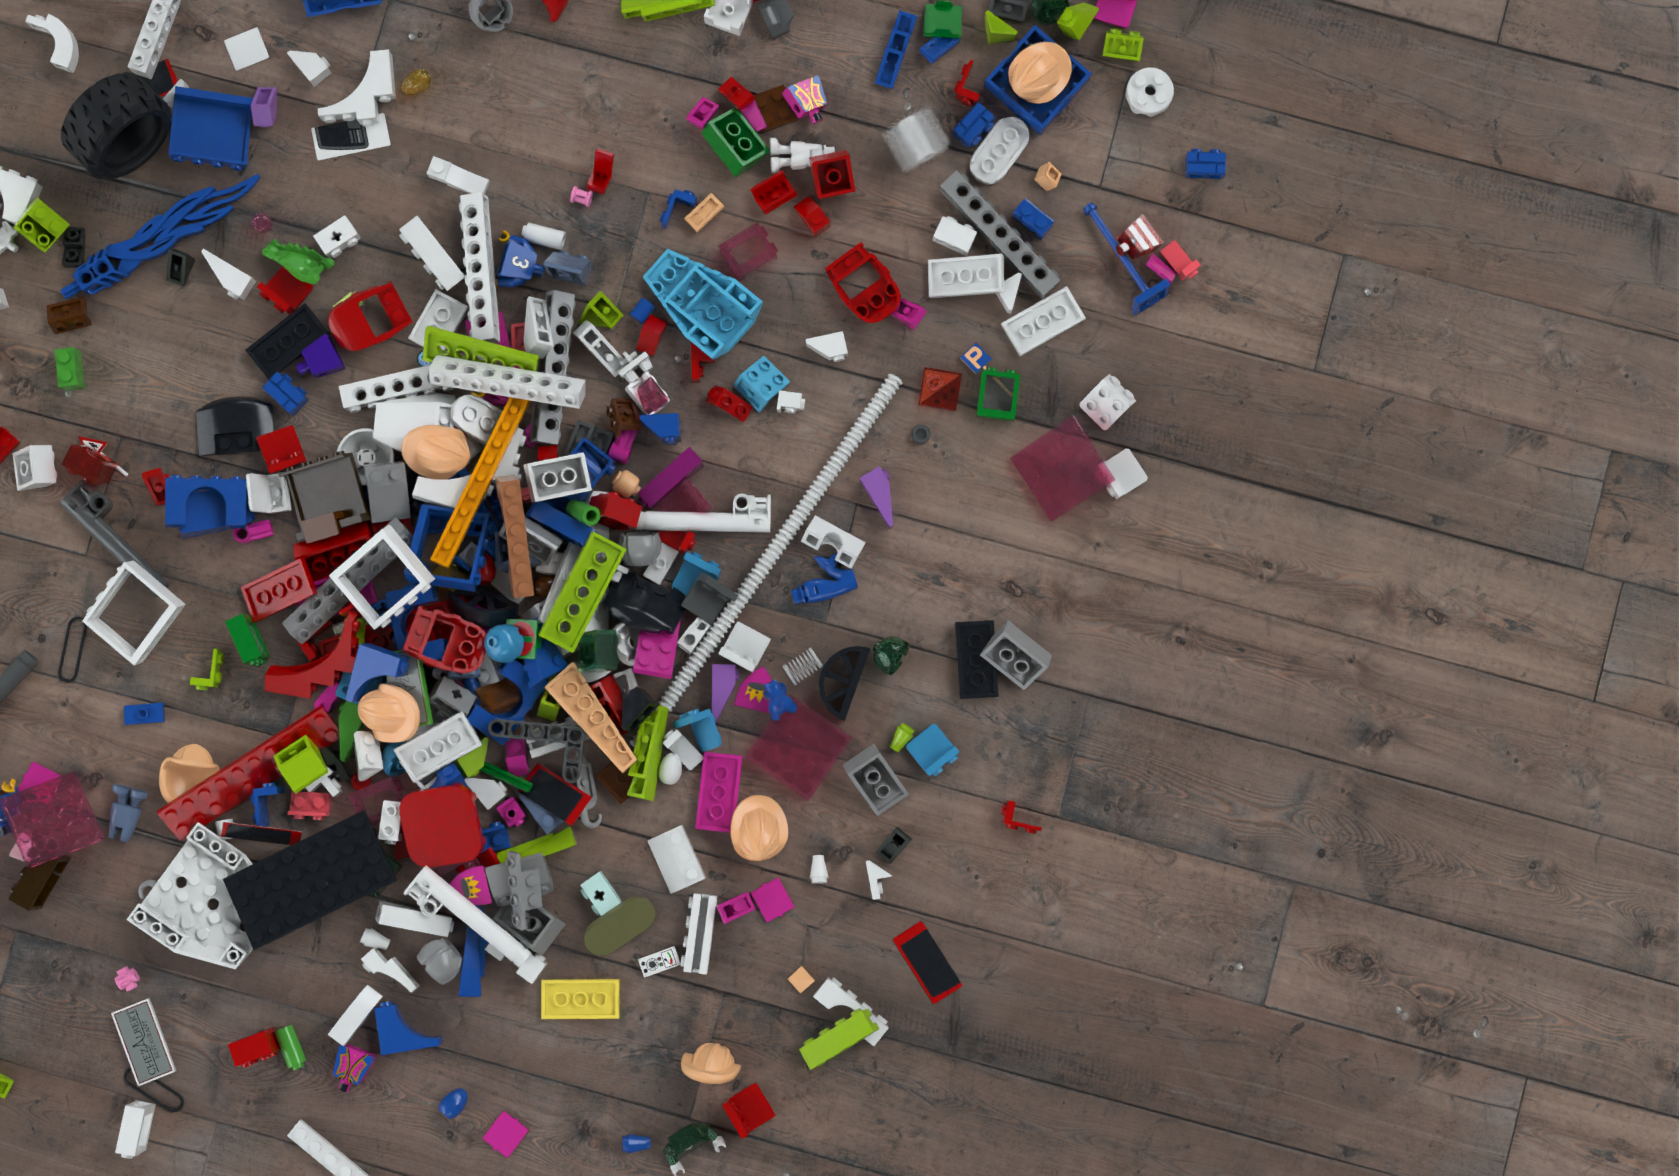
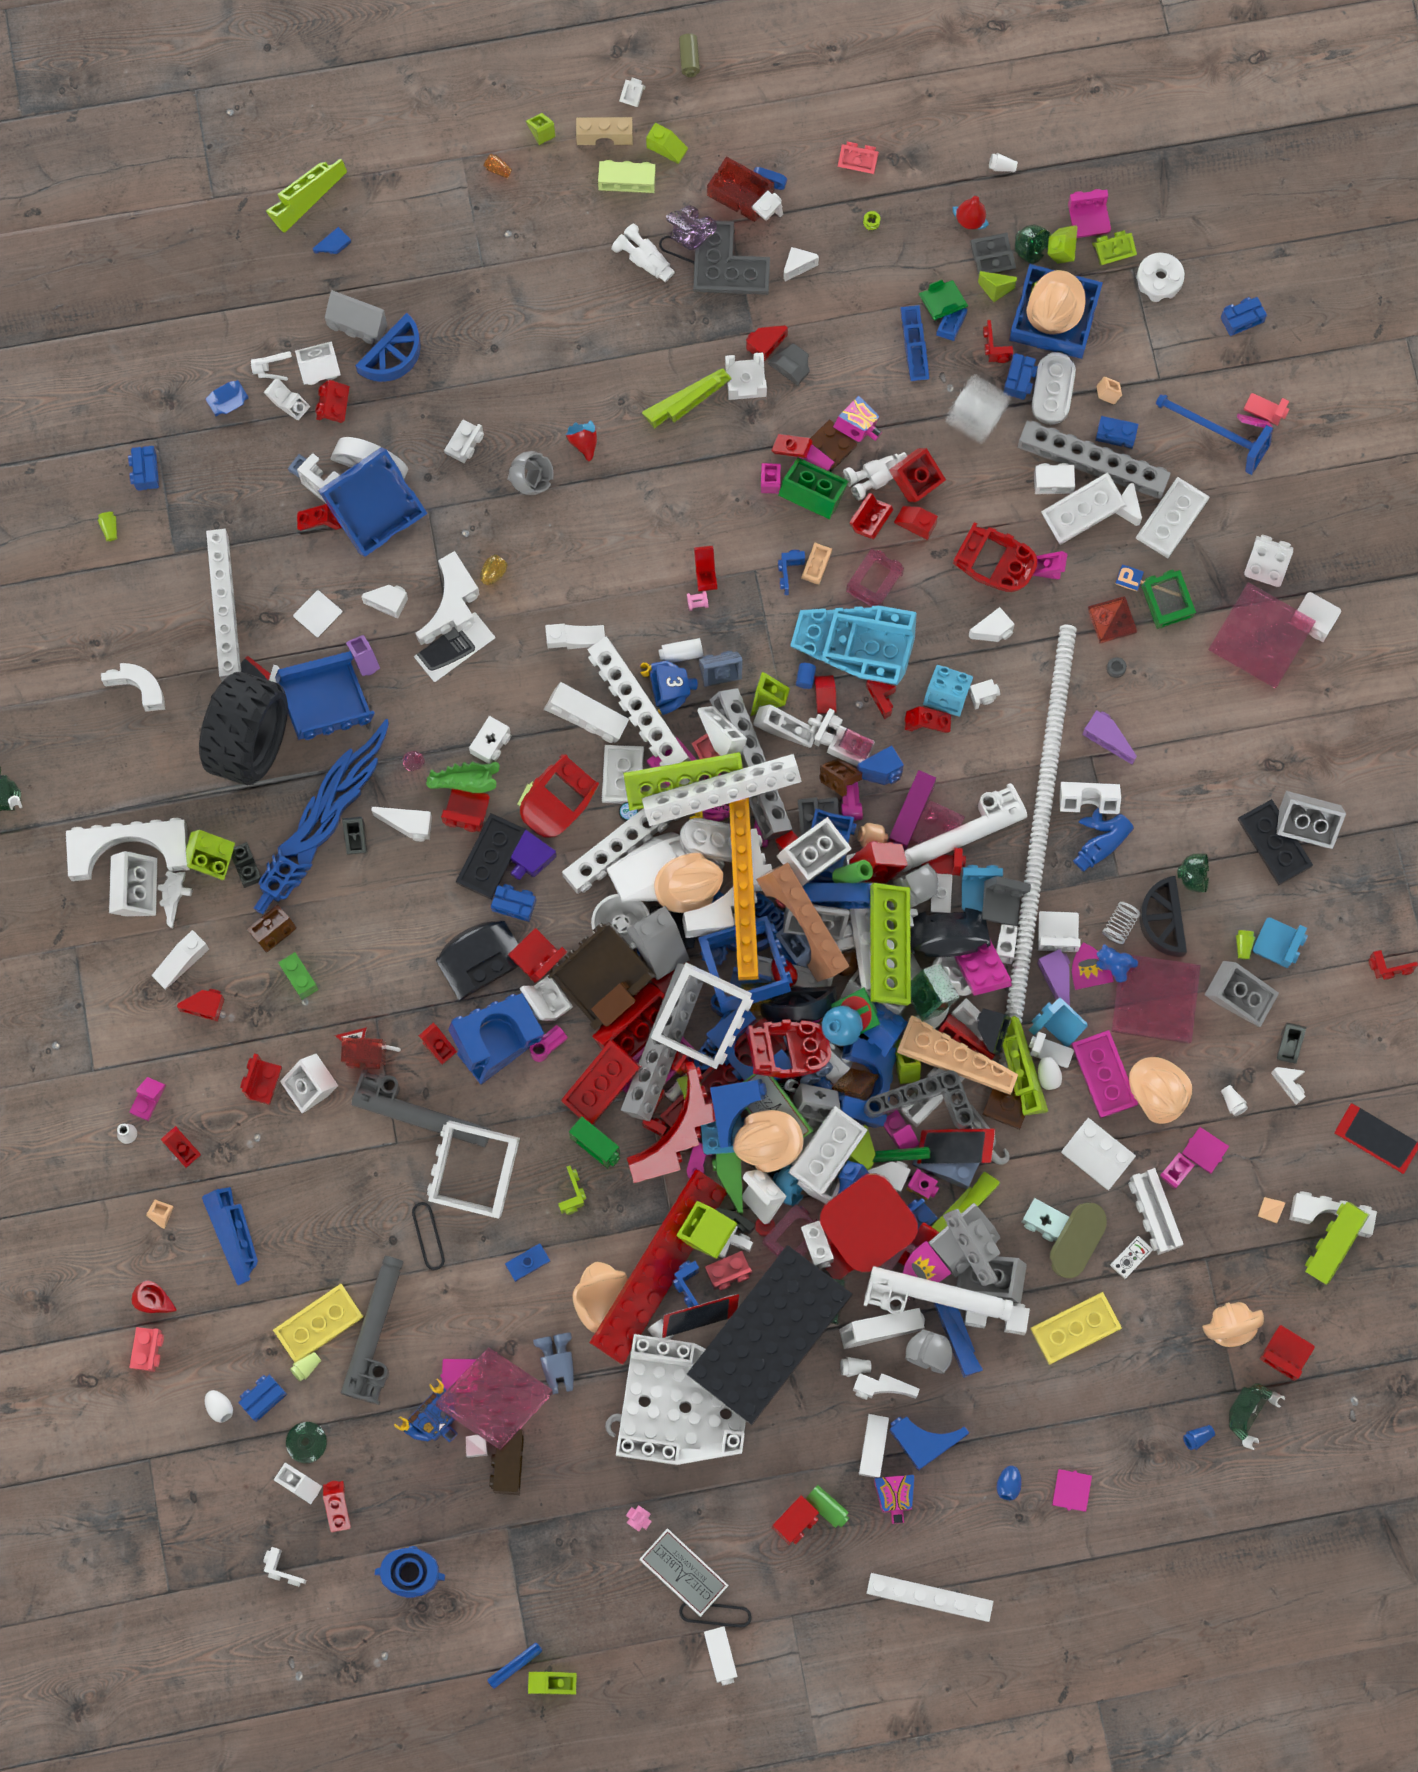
camera: 25 degrees left, 10 degrees down
(1138, 239) = (1220, 405): clear red torso -> none

